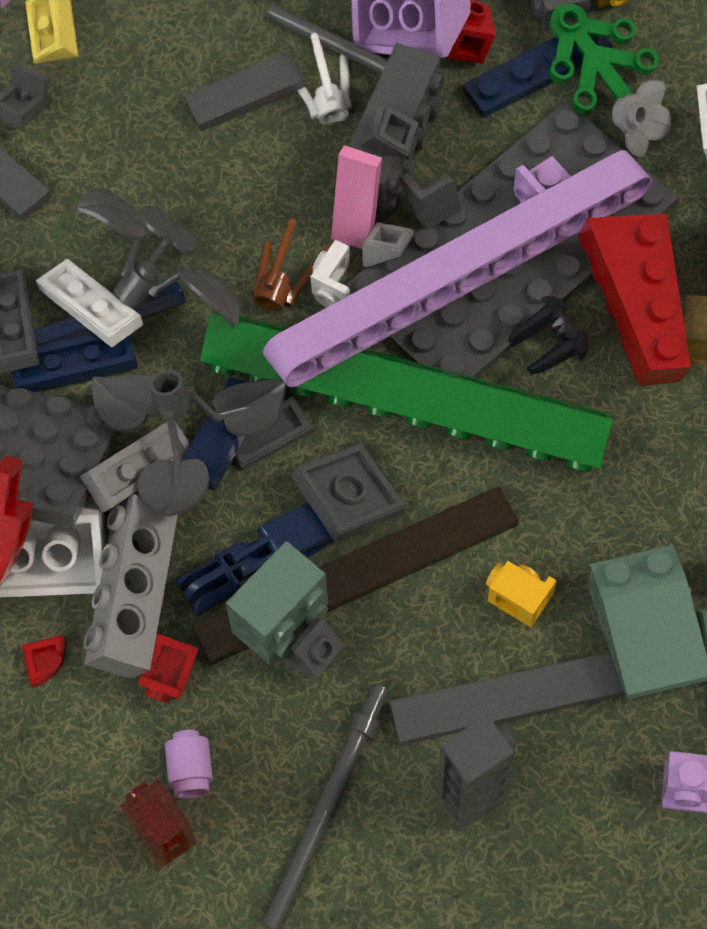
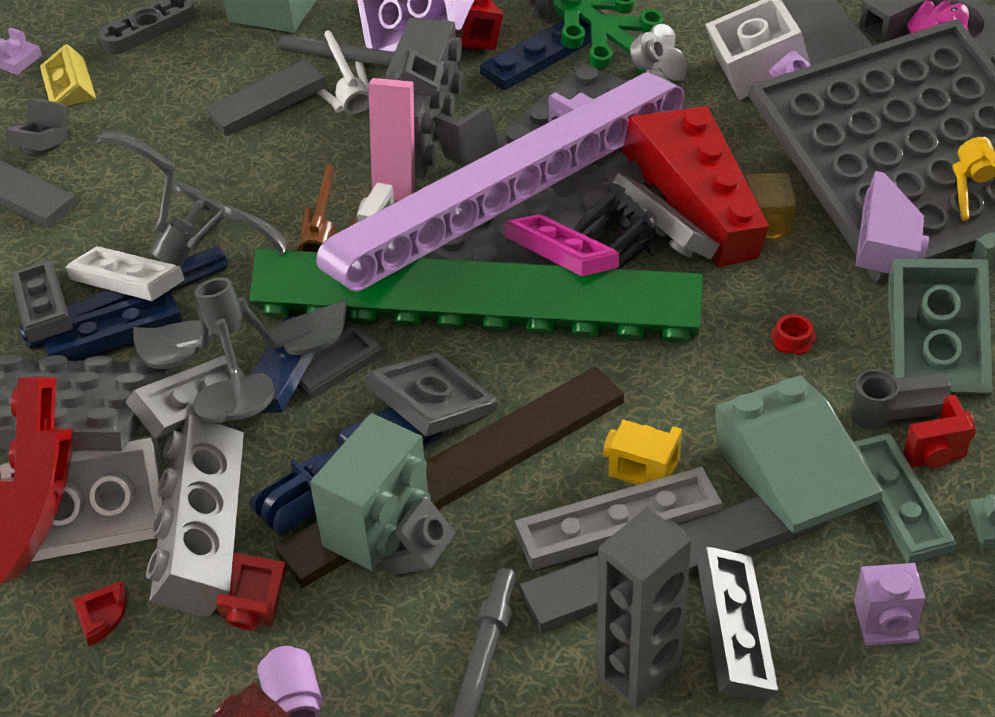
camera: 10 degrees left, 20 degrees down
(385, 243) = (425, 177): light grey slope -> none
(484, 651) = (585, 525): none -> light grey plate
(491, 357) = (562, 245): none -> dark pink tile
(558, 773) = (736, 625): none -> plate
(603, 335) = (685, 235): none -> light grey plate
(690, 474) = (793, 334): none -> red plate

